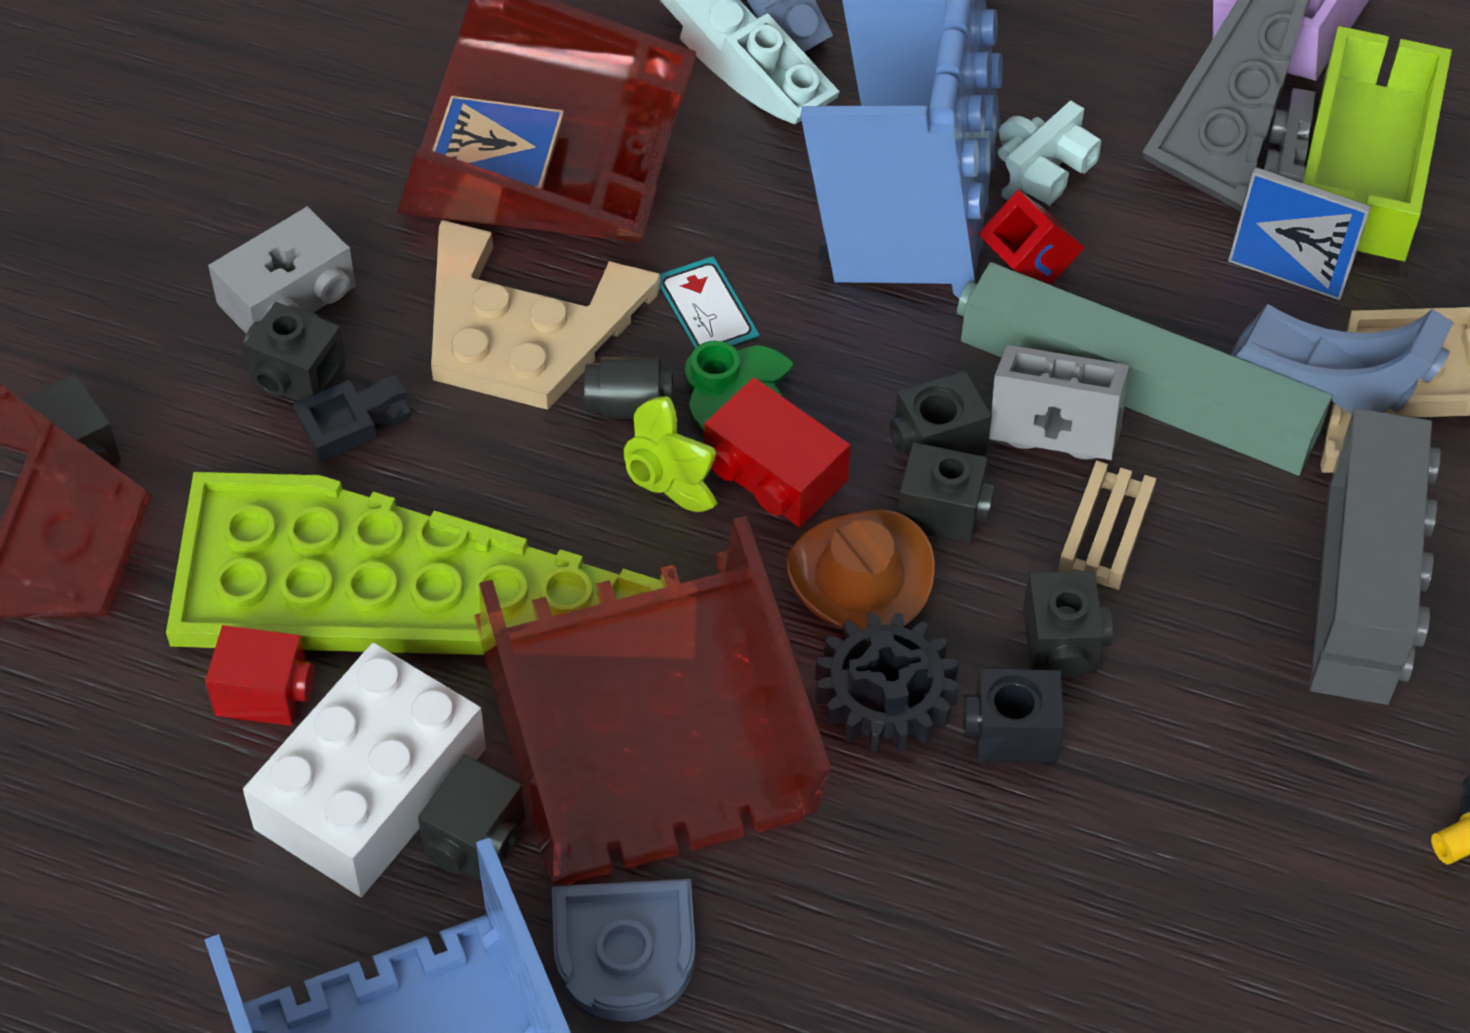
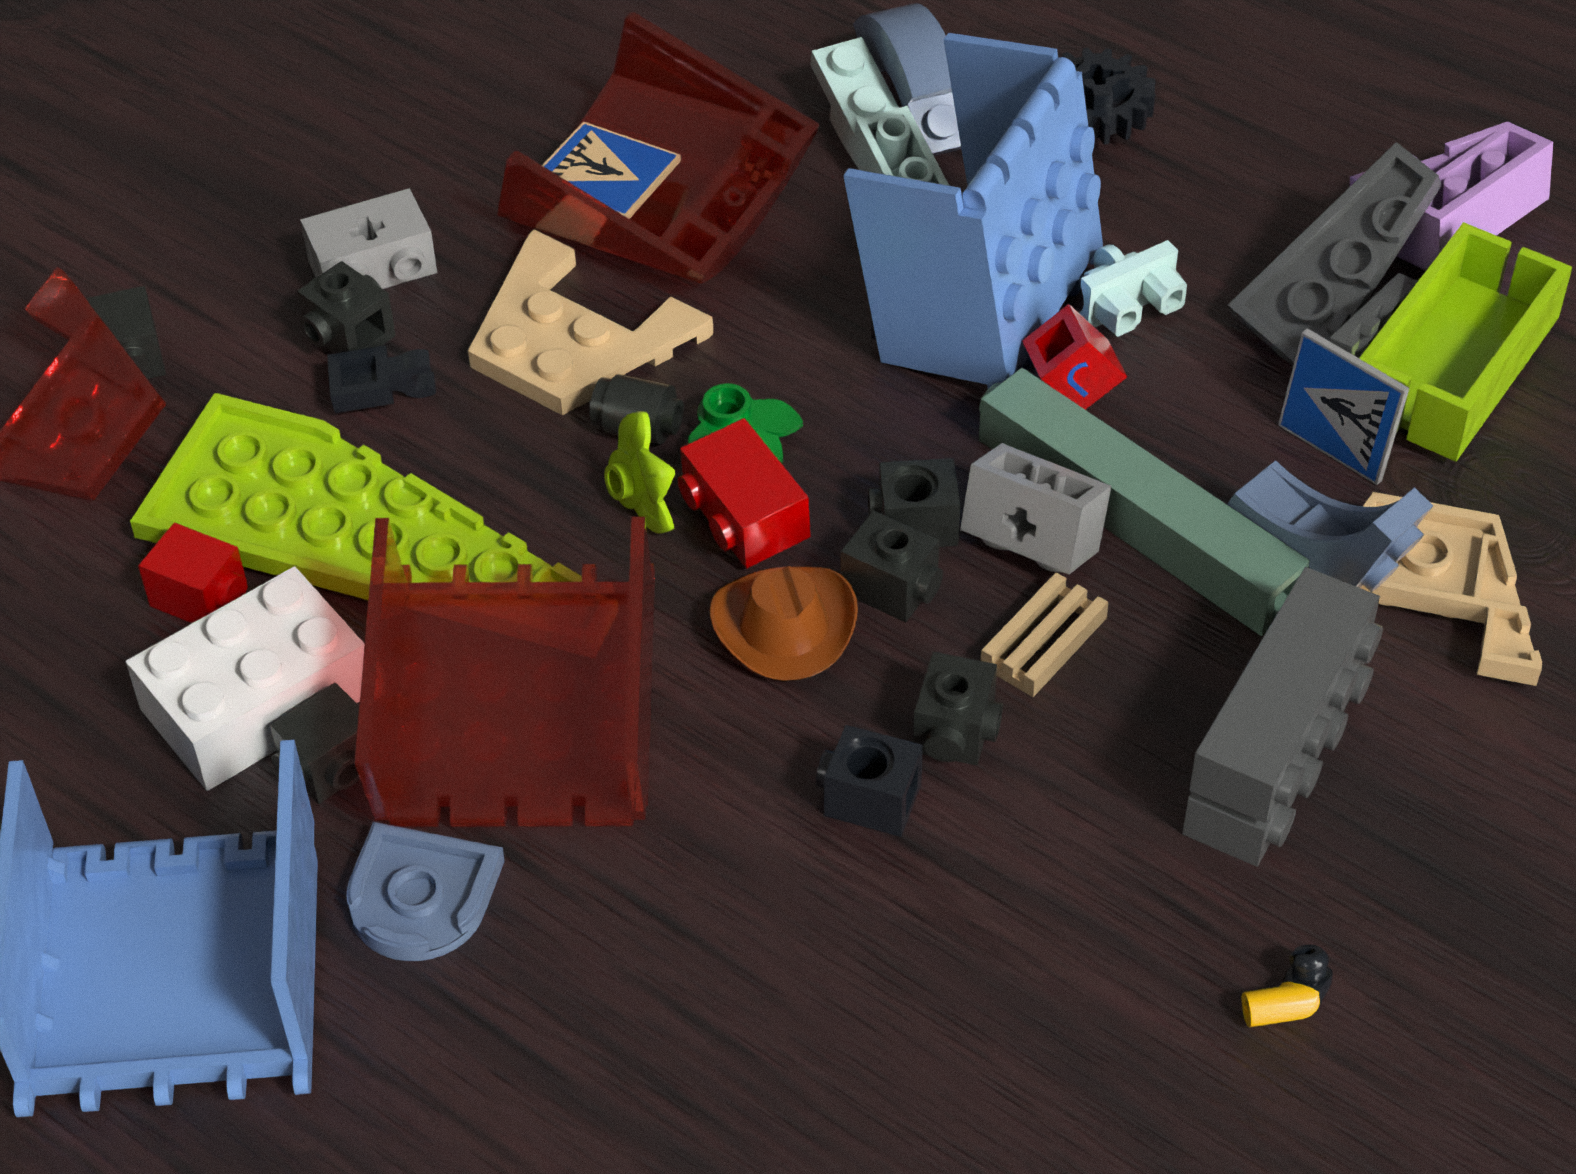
camera: 20 degrees right, 5 degrees down
(706, 304) = (751, 355): white sticker -> none
(886, 681) = (760, 719): black gear -> none

